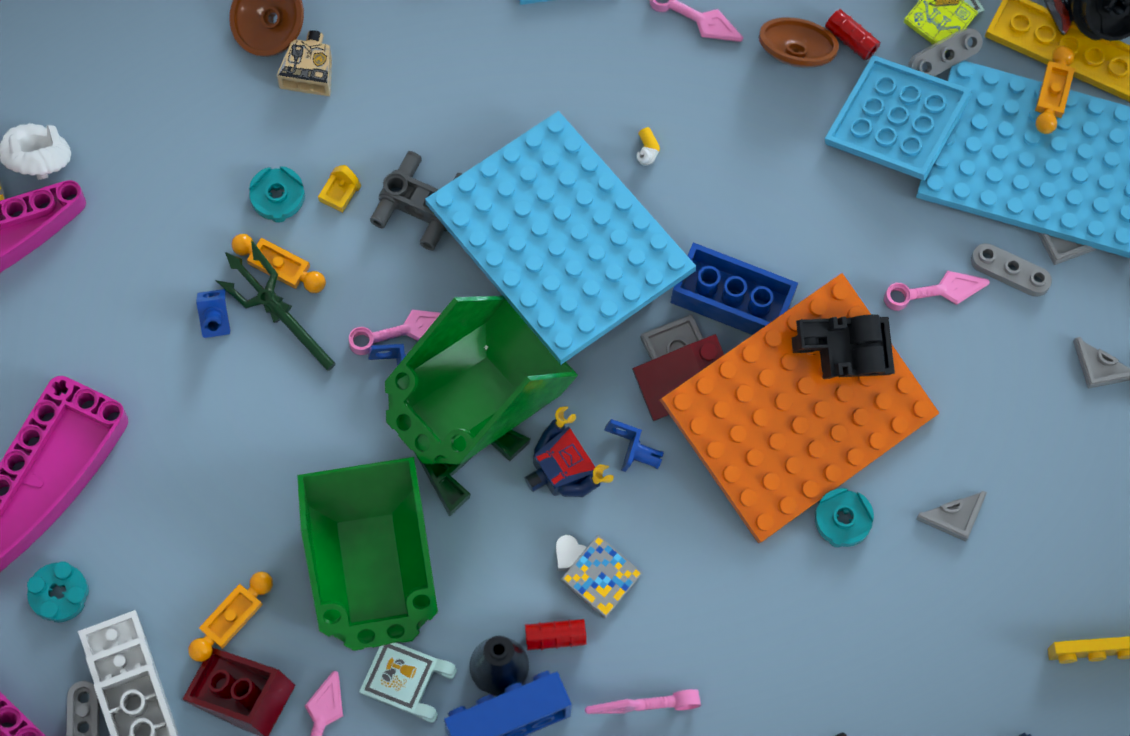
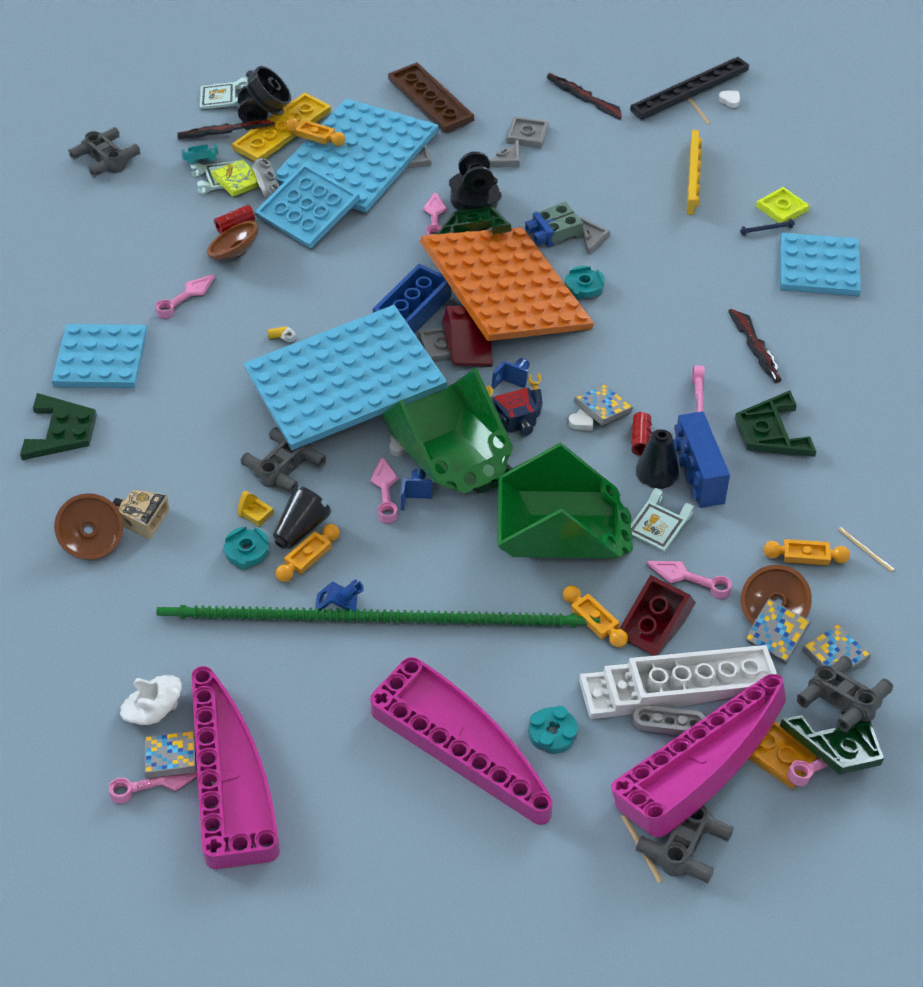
camera: 75 degrees left, 20 degrees down
(197, 377) = (184, 612): none -> green hose
(273, 303) = (341, 560): dark green piece -> none
(324, 240) = (300, 517): none -> black cone
(848, 345) = (477, 238): black plate -> none
(927, 339) = (475, 219): none -> dark green wing
(953, 456) = (554, 225): none -> sand green hips
(996, 331) = (474, 184): none -> black piece
(998, 269) = (430, 181): light grey plate -> none

